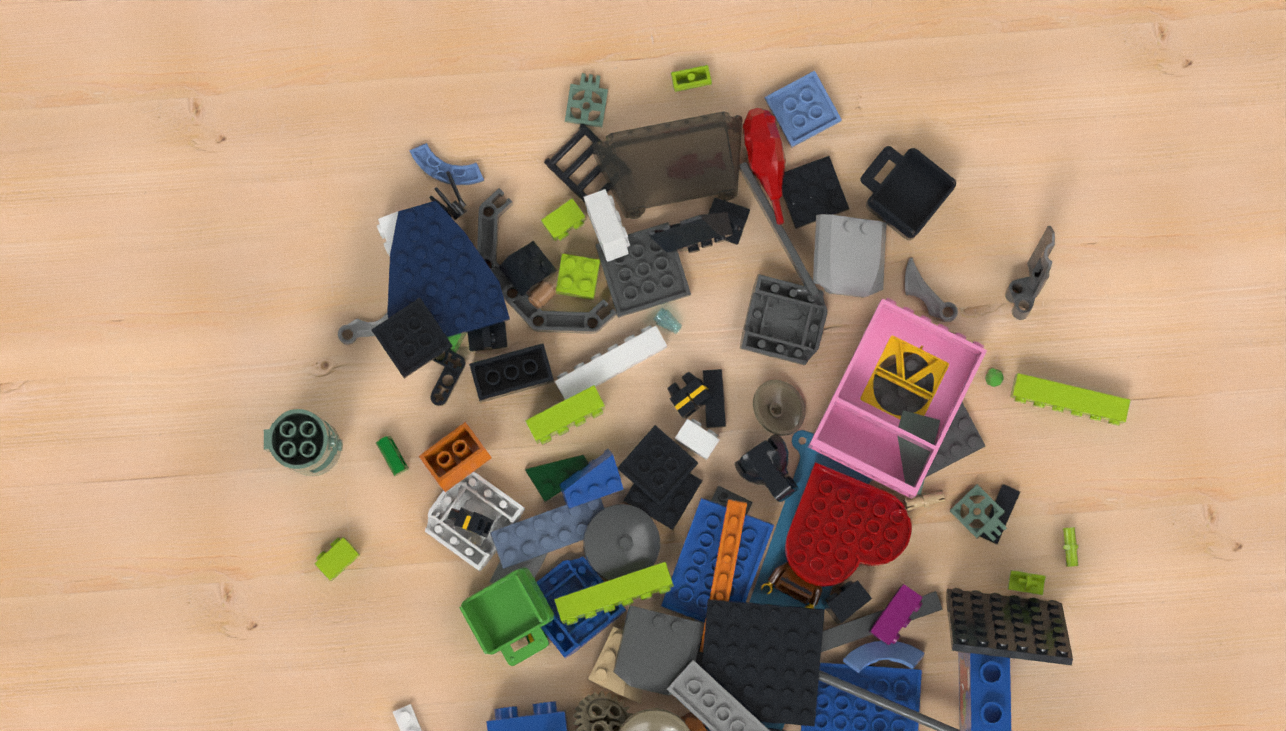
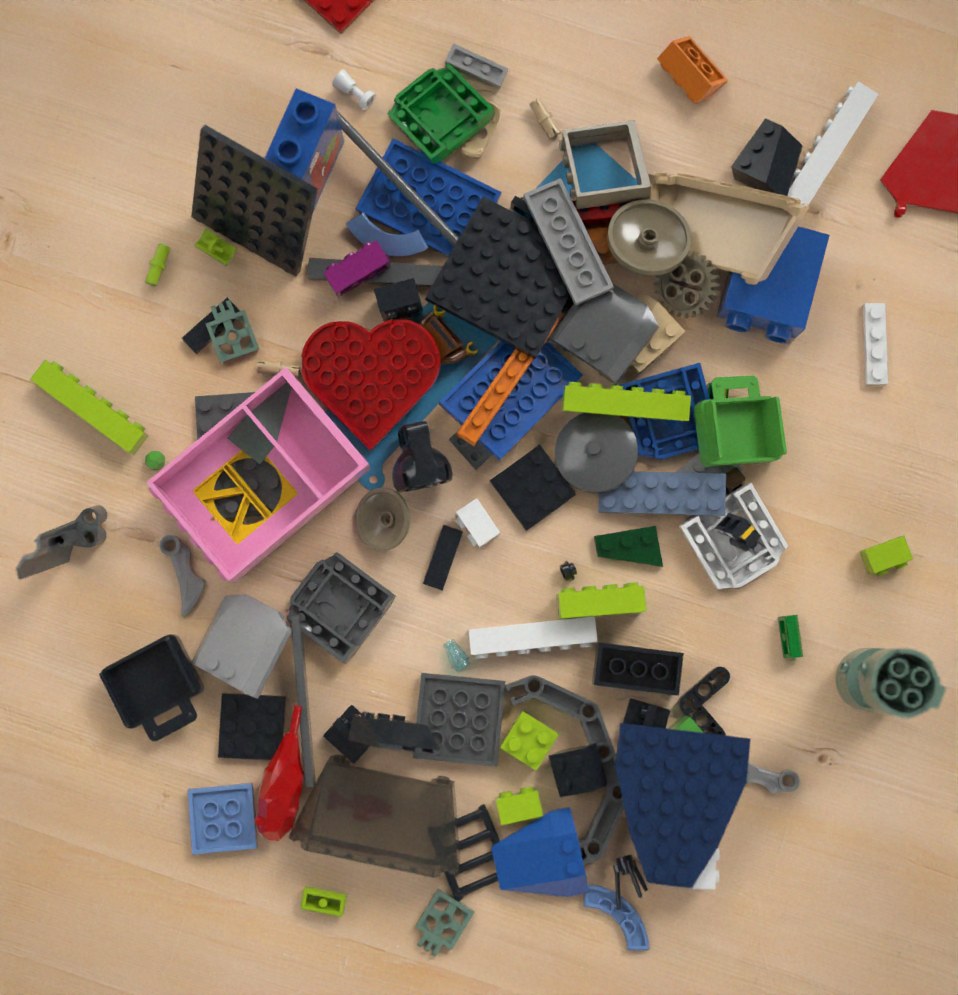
camera: 160 degrees left, 0 degrees up
(412, 338) = (732, 745): black plate -> none
(455, 457) = (730, 606): orange brick -> none
(493, 568) = (734, 480): none -> dark brown slope
(527, 186) = (542, 857): none -> blue wedge
(542, 294) = (574, 736): medium nougat brick -> none
(593, 481) = (601, 523): blue wedge -> none
(603, 432) = (568, 570): none -> black plate
(607, 225) = (477, 781): white brick -> none
(657, 465) = (529, 512): black plate -> none
(691, 396) = (466, 567): black hips -> none

